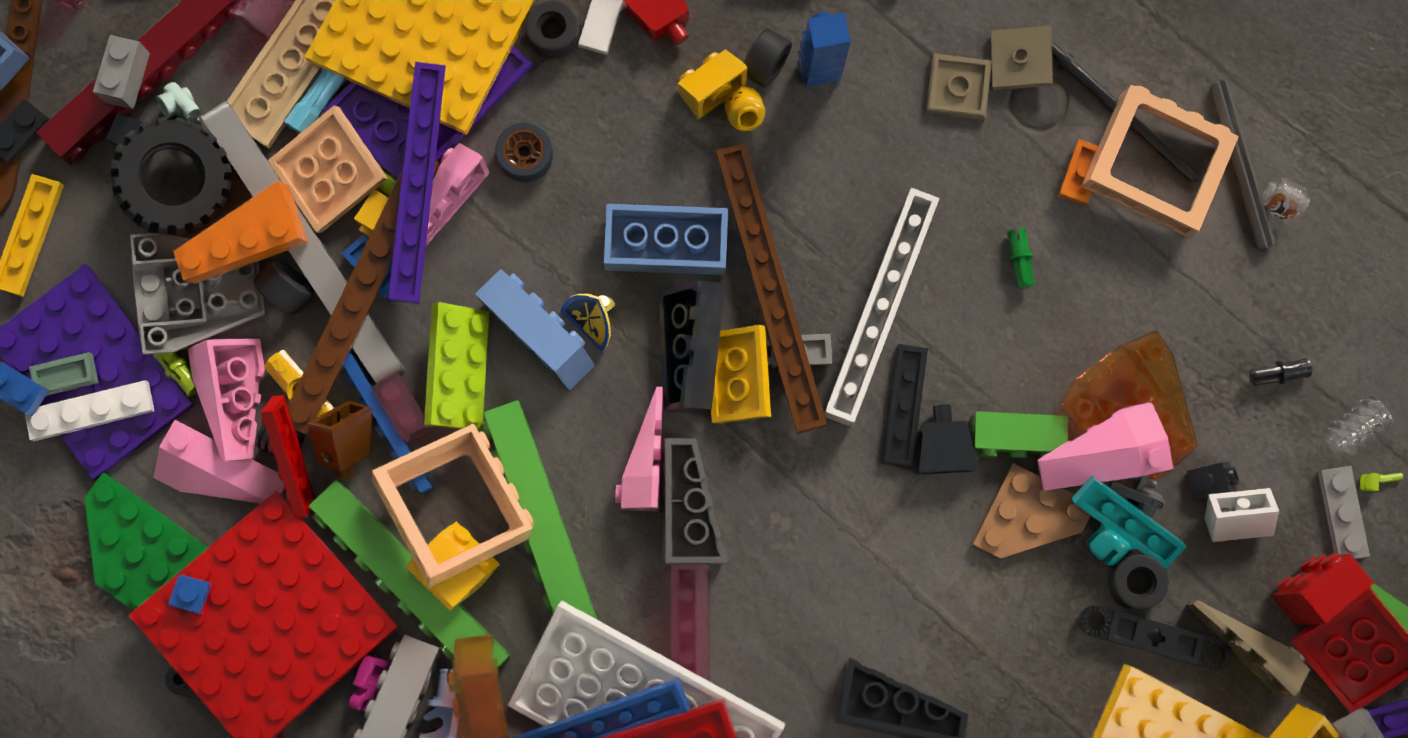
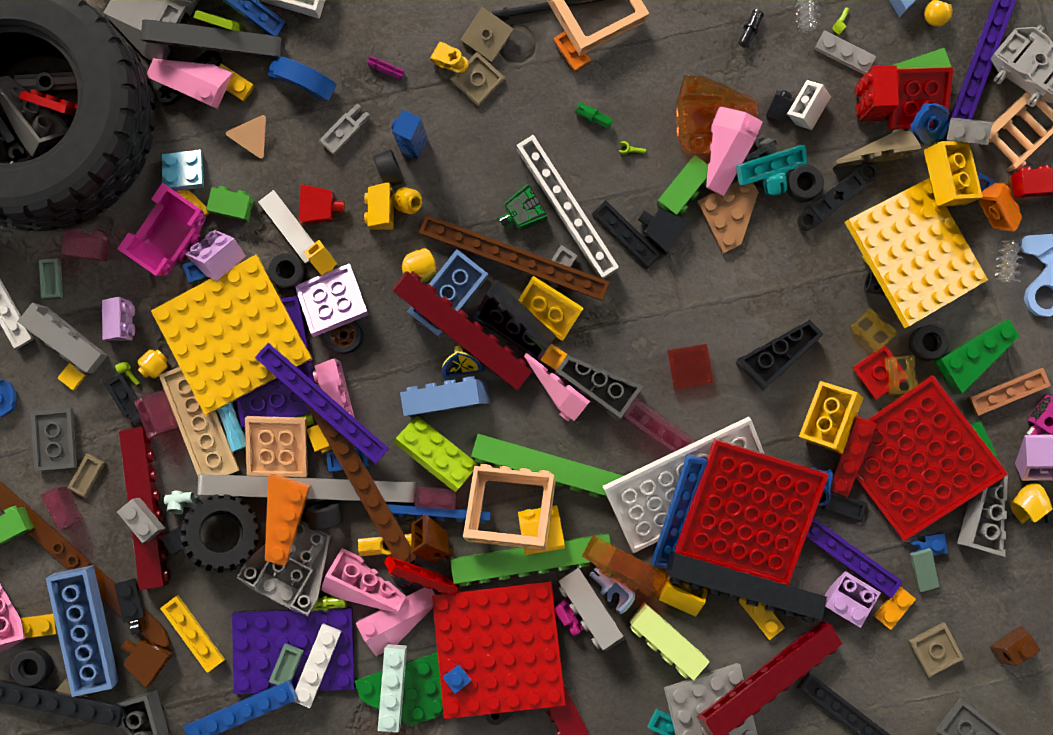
camera: 50 degrees left, 5 degrees up
(123, 523) = (392, 688): none -> light aqua brick
(554, 106) = (331, 300): none -> plate
(597, 56) = (320, 258): none -> yellow brick
(630, 285) = (461, 330): none -> dark red brick
(674, 179) = (422, 263): none -> yellow piece
(683, 424) = (553, 357): none -> light orange plate
(797, 606) = (690, 366): none -> clear red plate
(838, 256) = (523, 210): none -> torso
(957, 33) = (449, 58): none -> yellow piece
(1013, 331) = (630, 149): none -> lime hand
(1336, 672) = (928, 113): none -> blue plate

